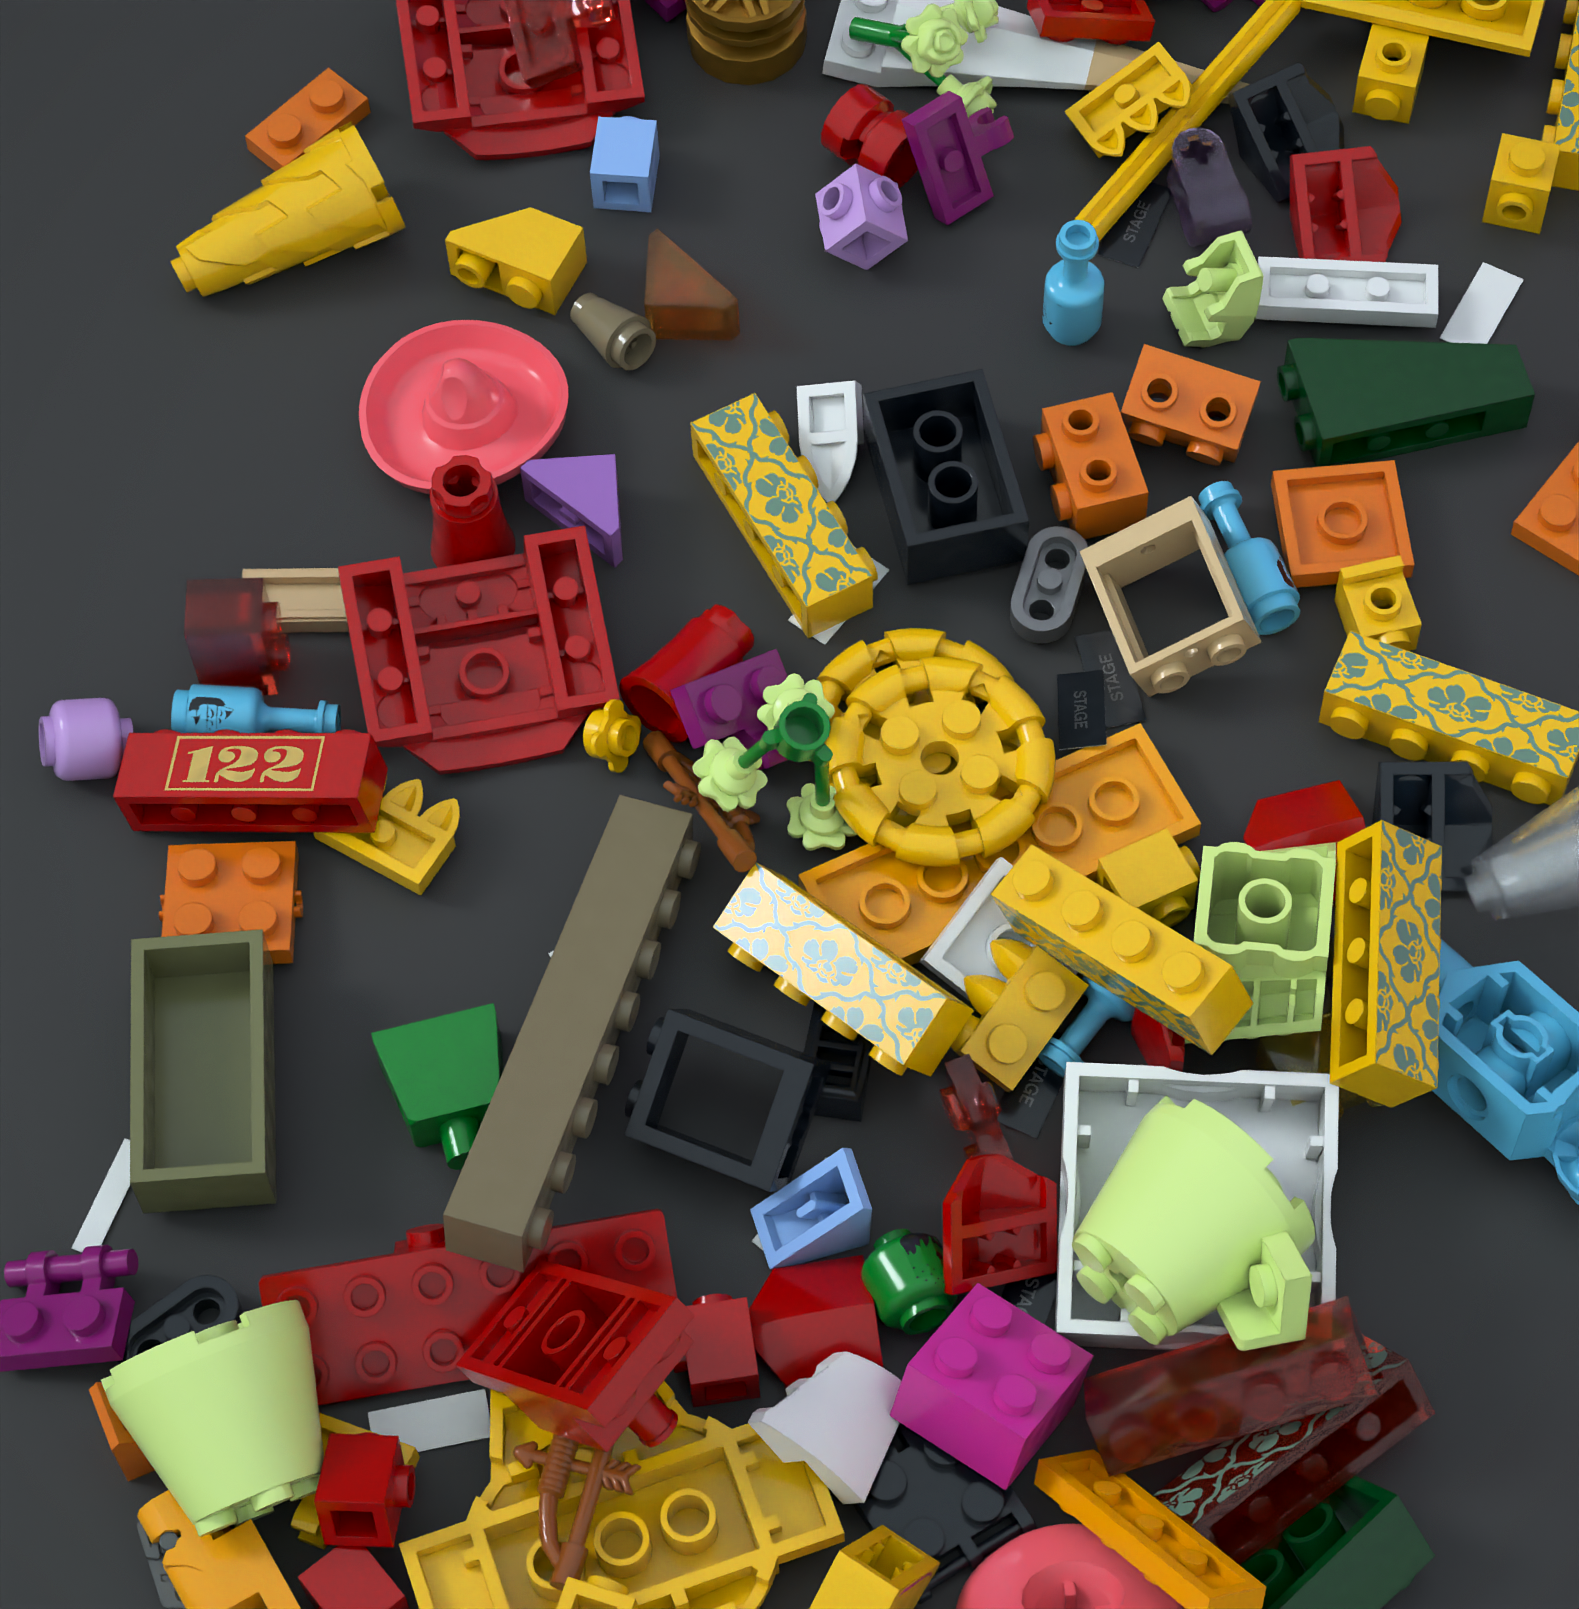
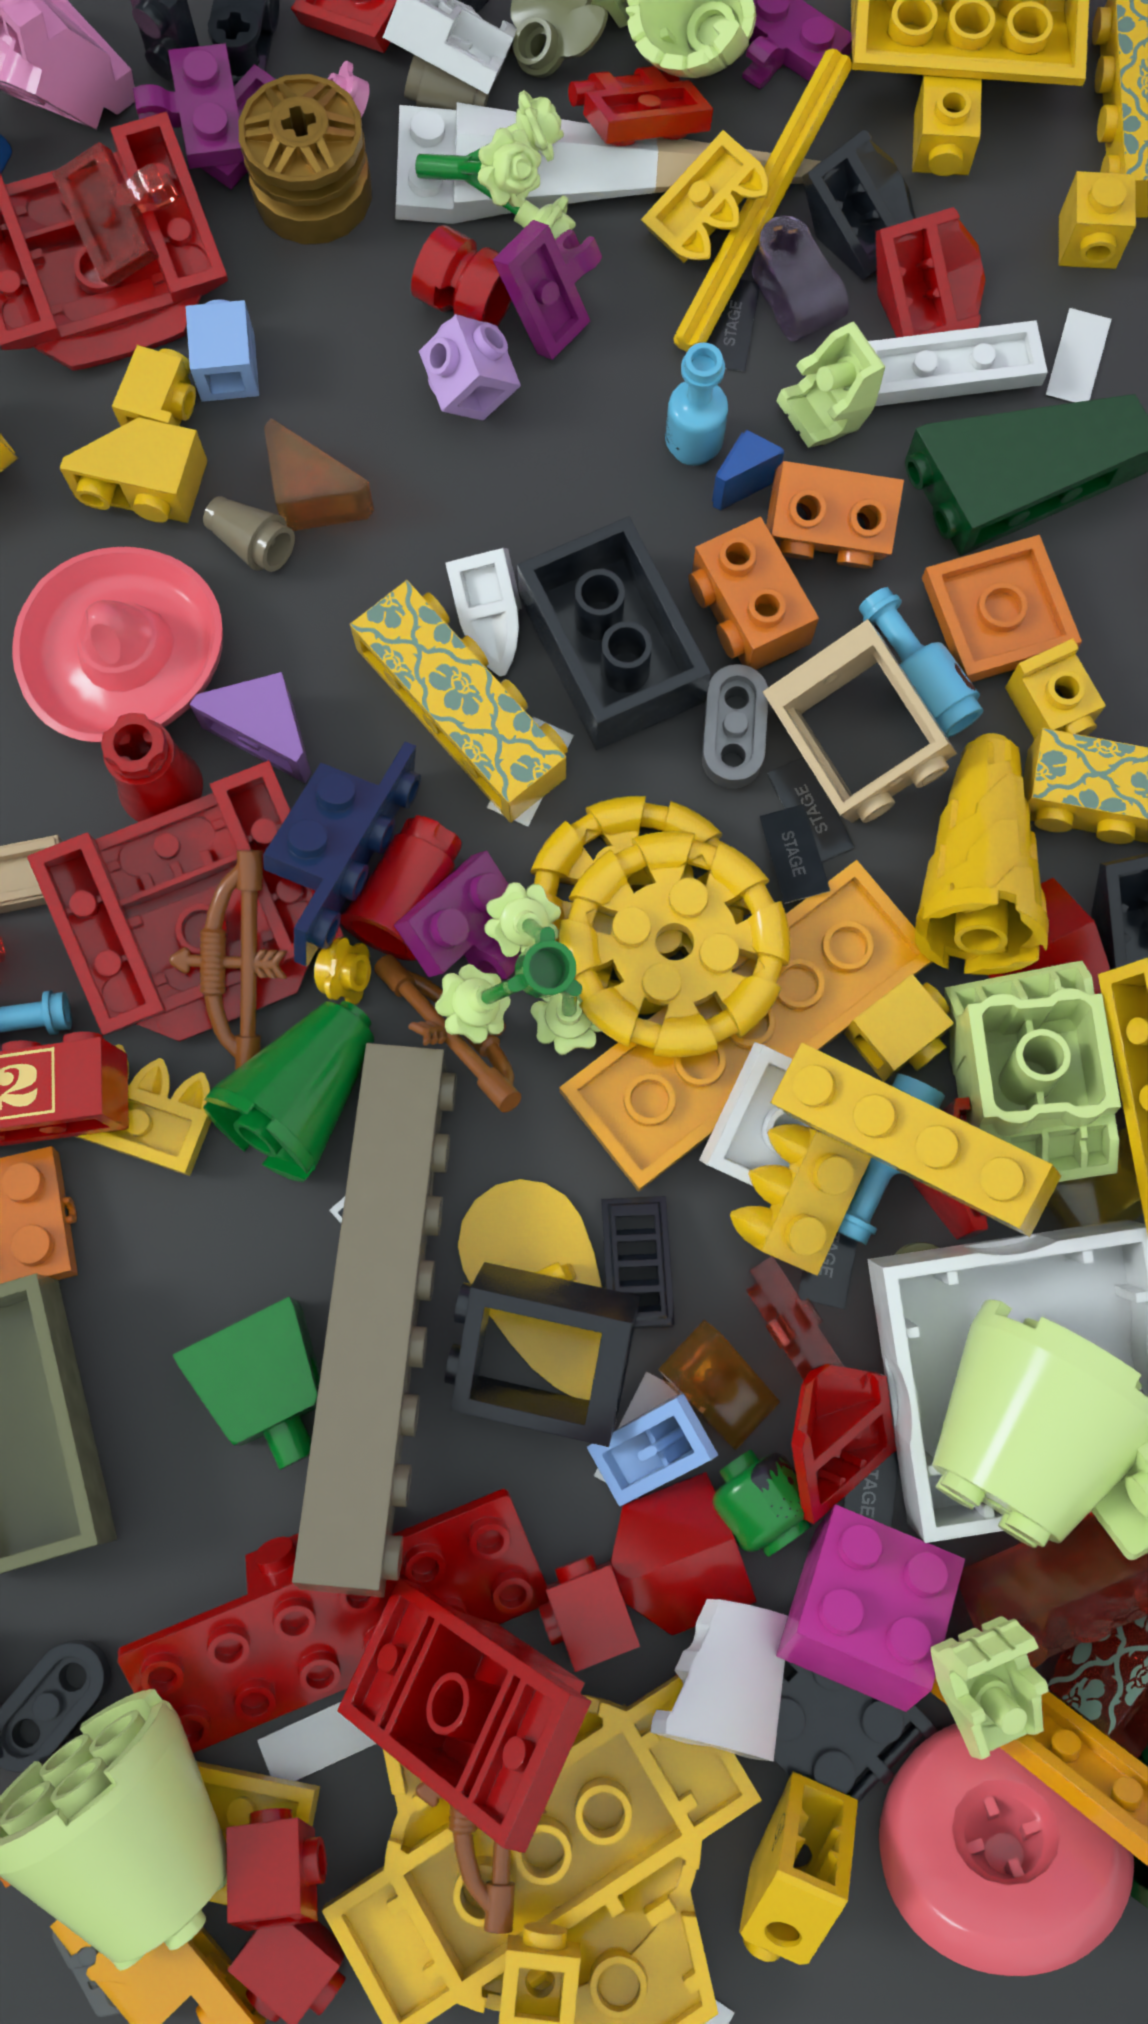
camera: 15 degrees left, 15 degrees up
(536, 829) = (294, 1089): none -> green cone
(538, 709) = (212, 960): none -> dark orange piece
(553, 184) = (155, 388): none -> yellow brick
(632, 607) = (332, 838): none -> dark blue bracket
(726, 1086) = (542, 1233): none -> yellow shield
(842, 970) = (629, 1193): yellow brick -> none
(892, 1164) = (719, 1384): none -> clear orange slope
(1082, 1442) = (991, 1684): none -> yellowish green hand
(1111, 353) = (746, 469): none -> blue slope
(1255, 754) = (984, 875): none -> yellow cone

